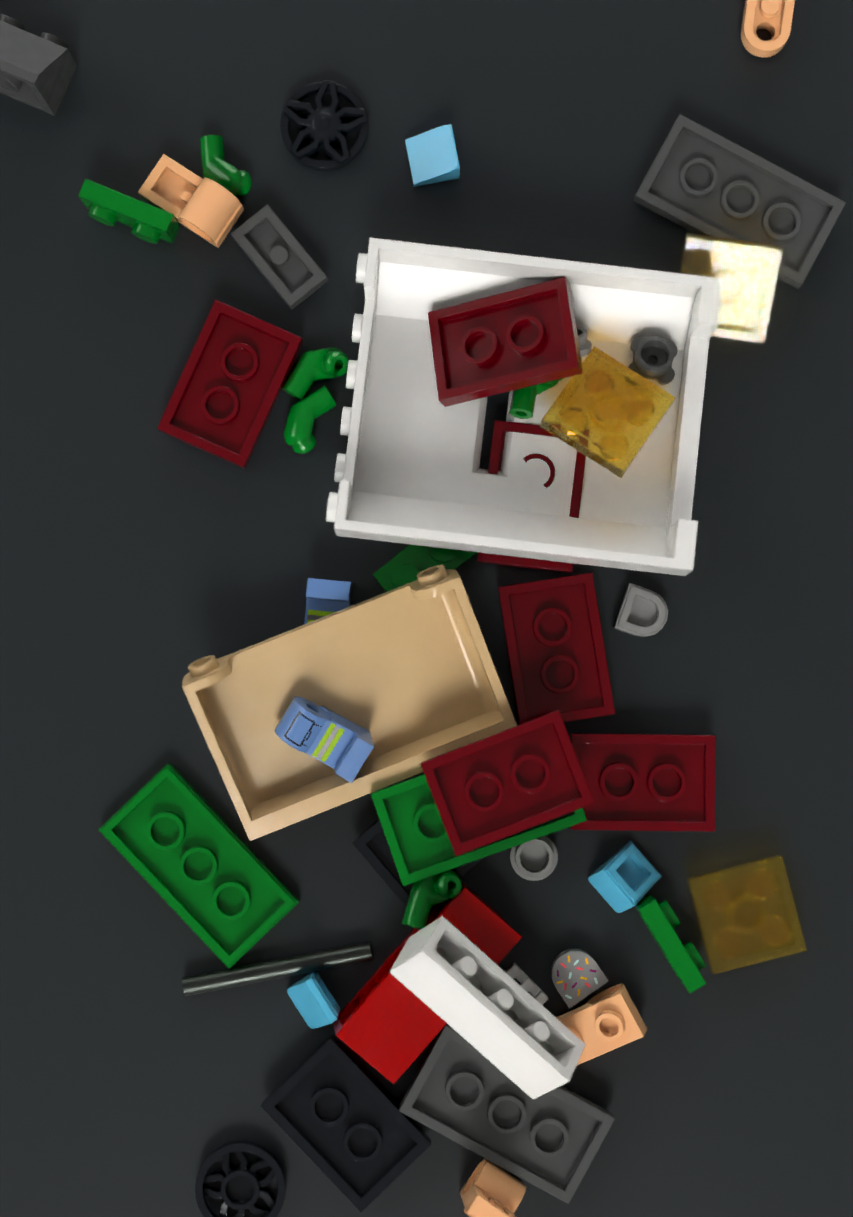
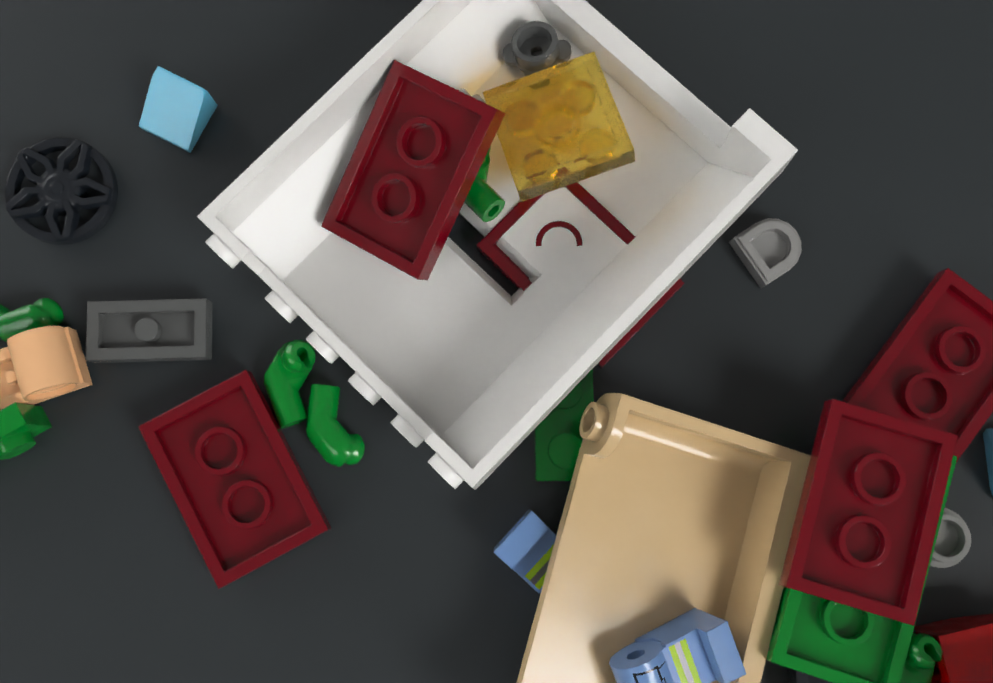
camera: 55 degrees left, 5 degrees down
(556, 648) = (749, 358): dark red plate -> none

